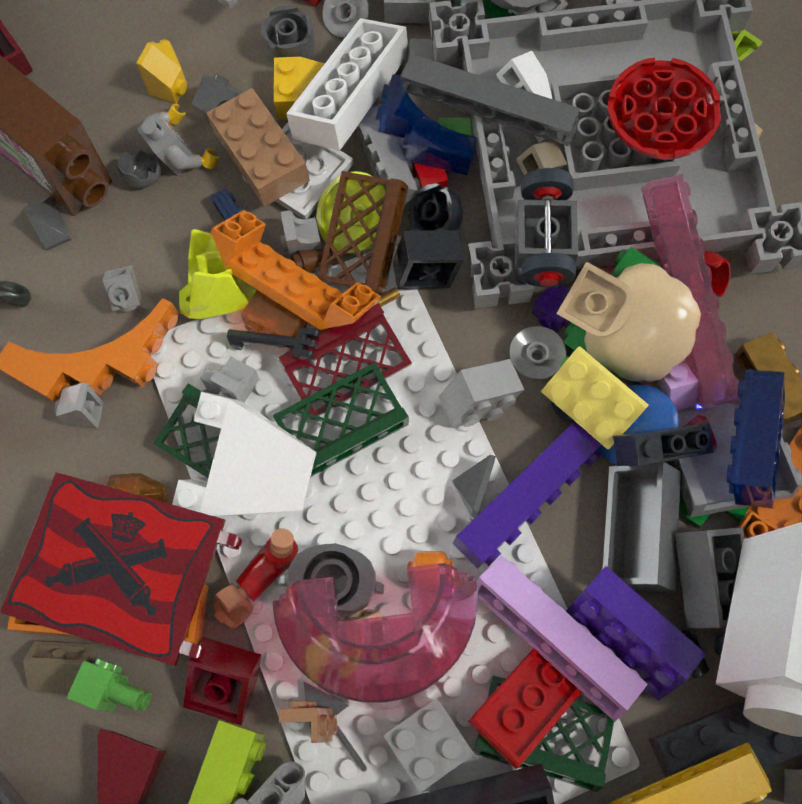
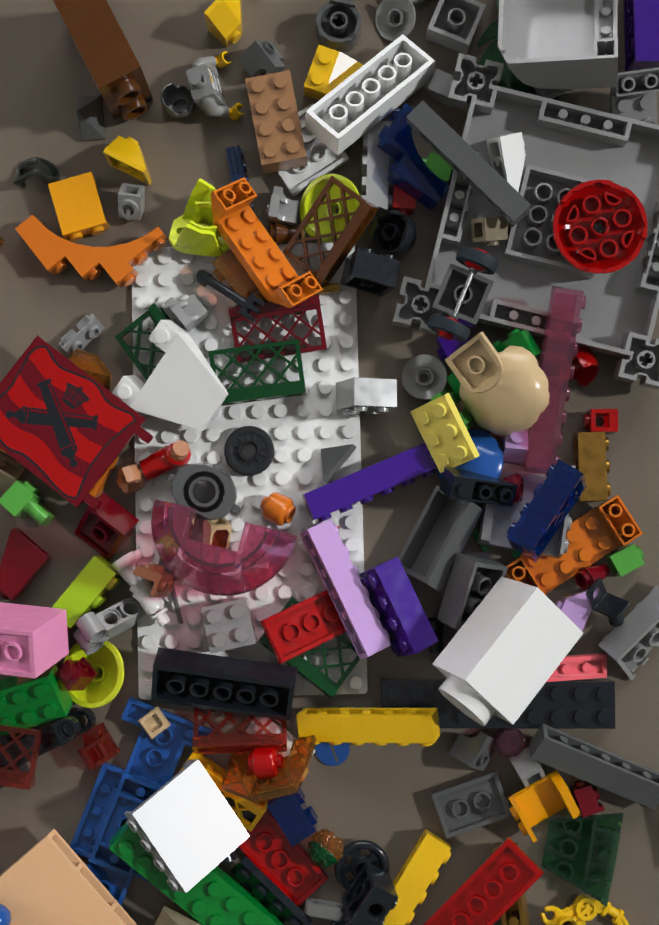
camera: 15 degrees right, 15 degrees up
(62, 316) = (78, 206): none -> light orange panel
(79, 406) = (68, 286): light grey slope -> none
(103, 246) = (128, 158): none -> yellow slope
(118, 452) = (89, 329): none -> light grey hinge
(296, 741) = (141, 587): none -> white piece
(369, 533) = (249, 465): none -> black wheel
(765, 318) = (609, 420): none -> red brick

